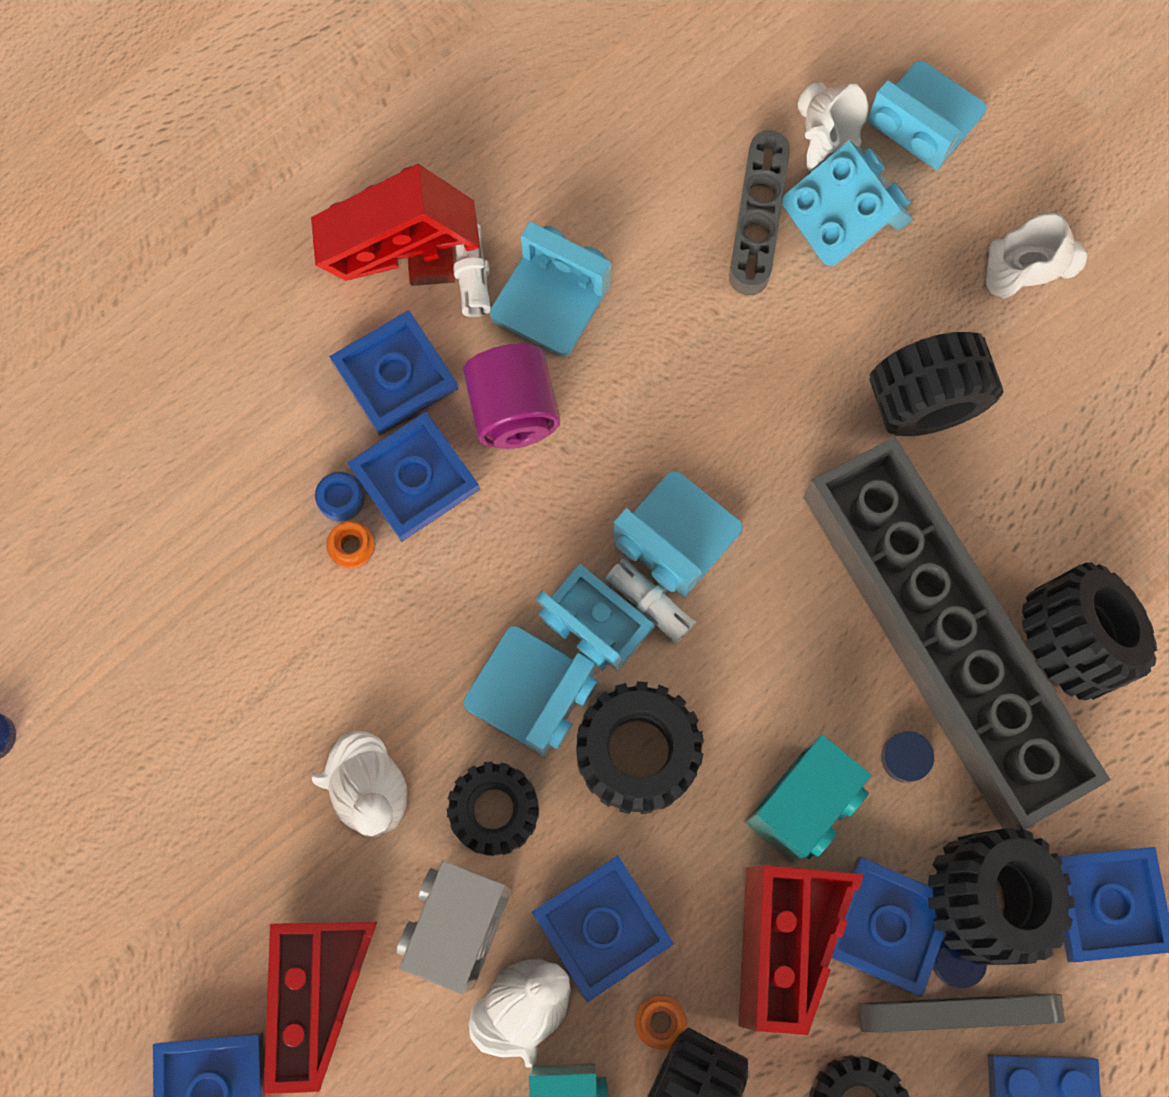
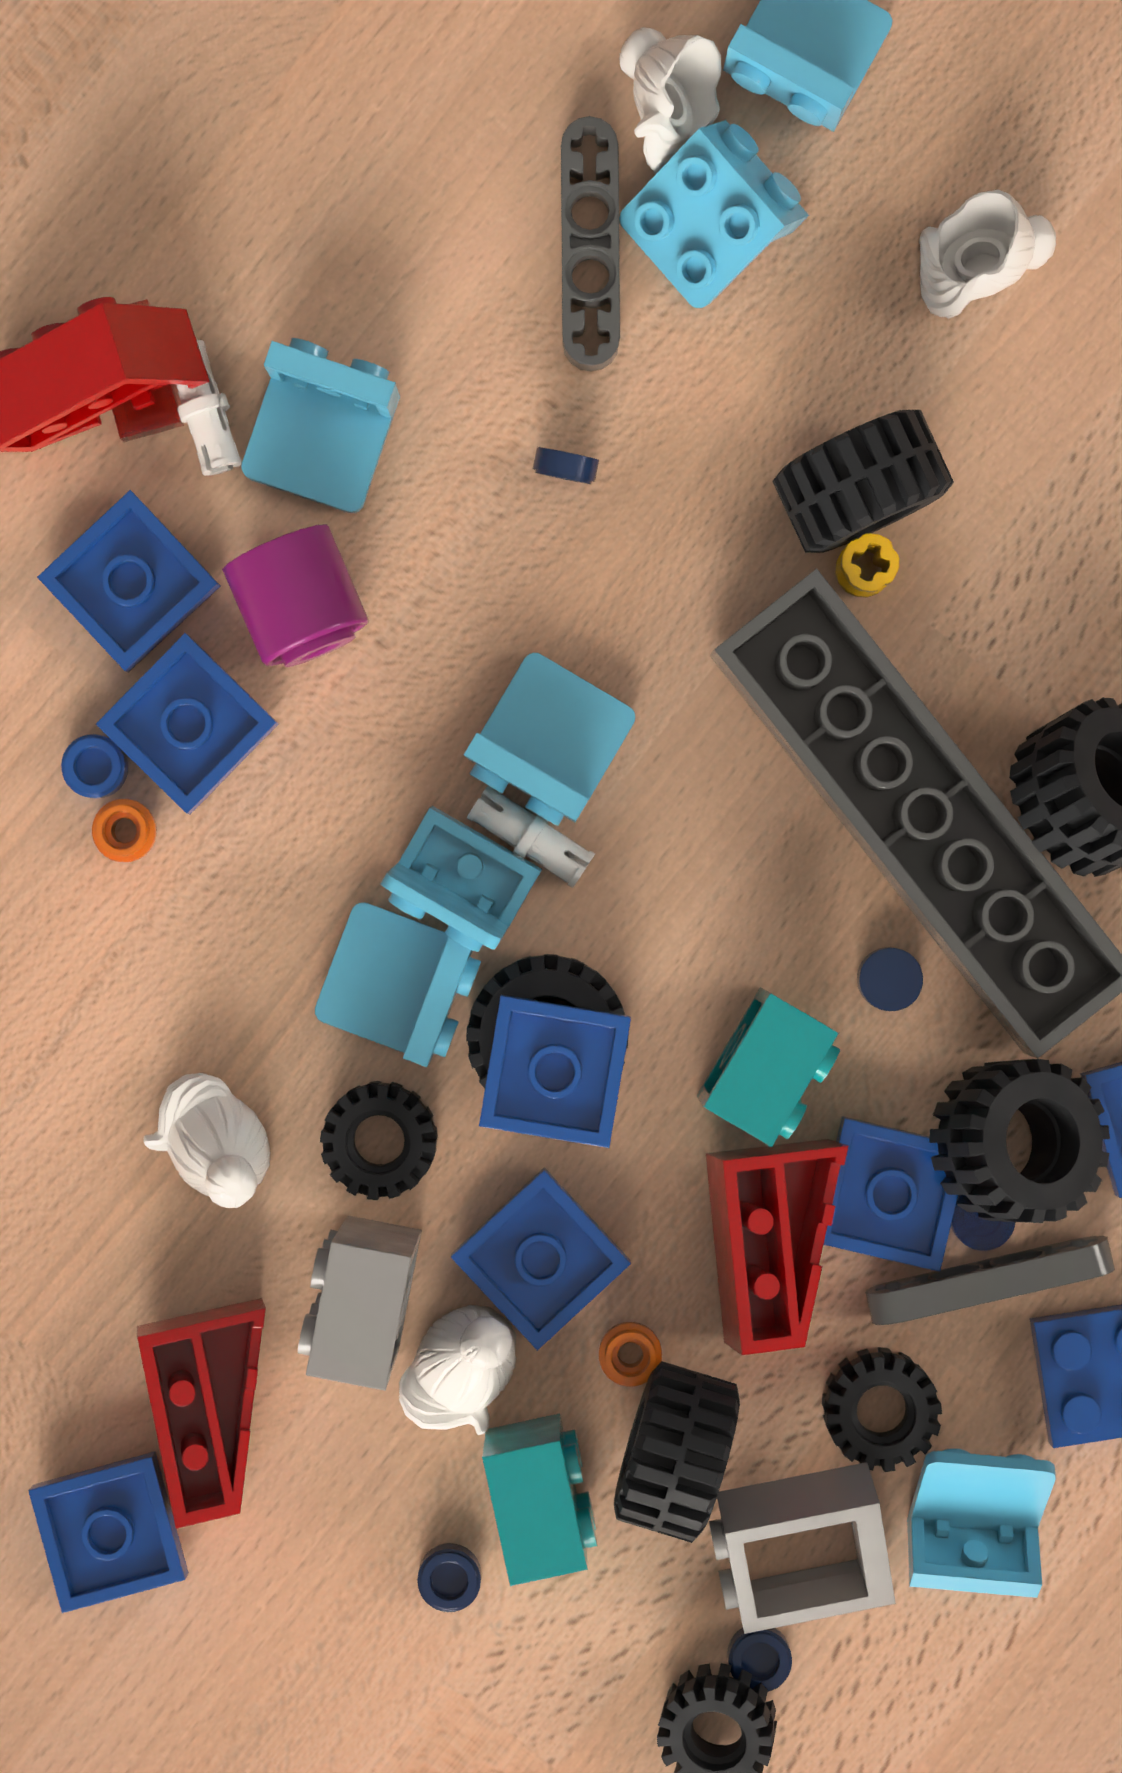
camera: 10 degrees left, 15 degrees up
(643, 767) = (555, 1071): none -> blue plate
(719, 347) = (565, 465): none -> dark blue tile
(940, 448) = (884, 557): none -> yellow bush

